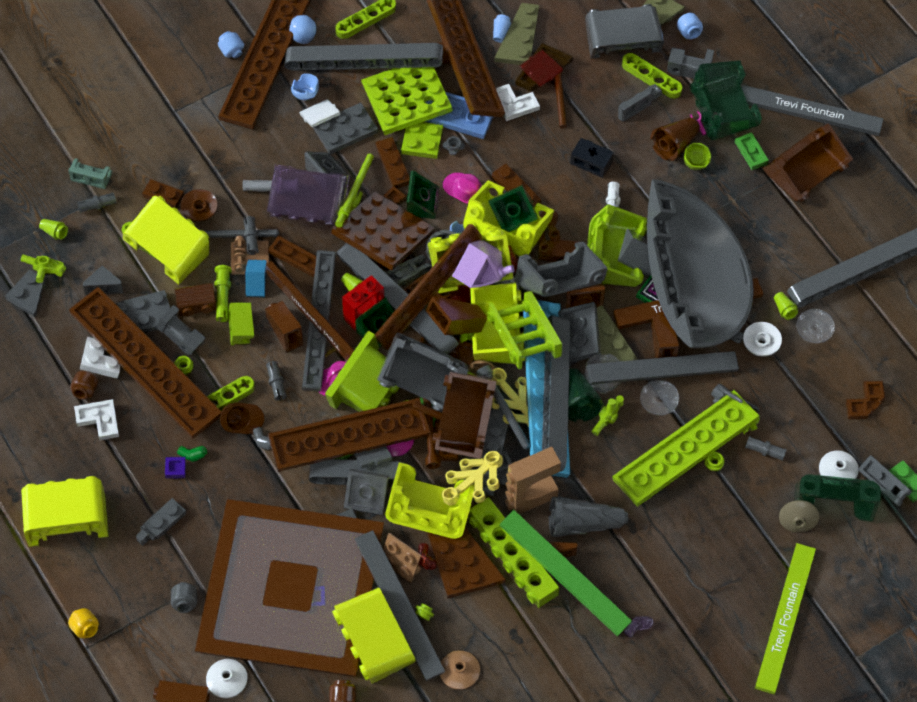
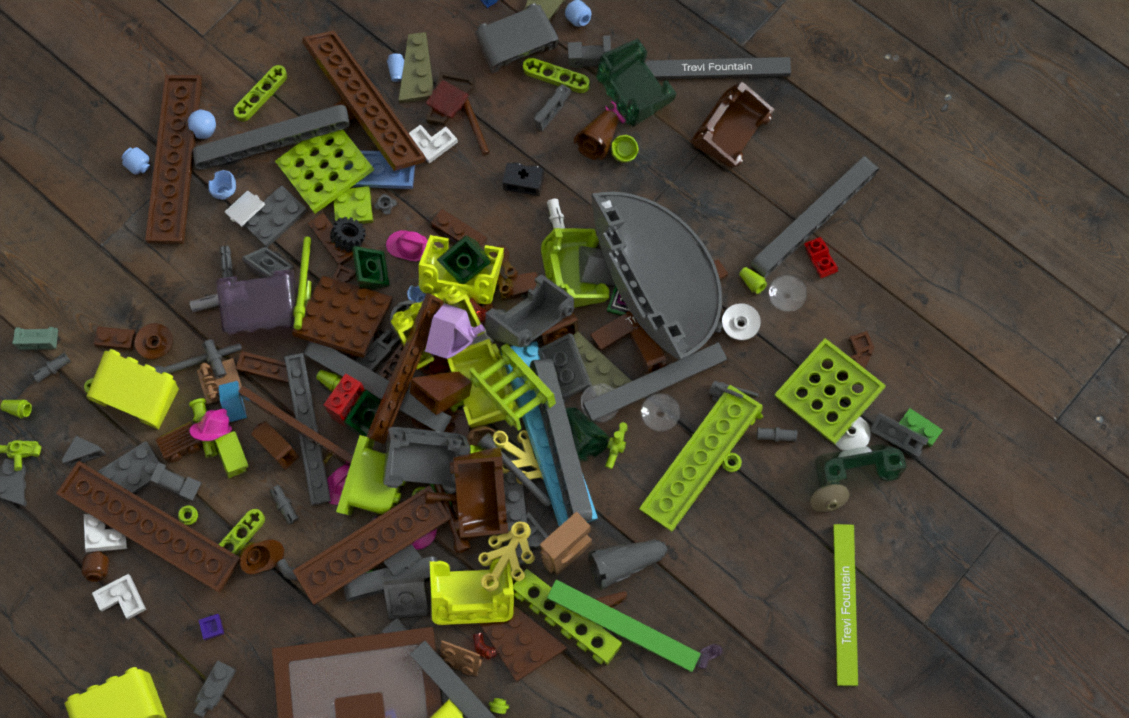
camera: 10 degrees left, 10 degrees up
(193, 454) = (224, 607): green arm -> none
(231, 290) = (212, 426): none -> dark pink piece
(288, 153) = (226, 262): none -> dark grey axle
(417, 159) = (351, 227): none -> black tyre
(751, 151) = (674, 127): bright green plate -> none
(831, 410) = (828, 378): none -> lime piece
(857, 304) = (820, 257): none -> red slope

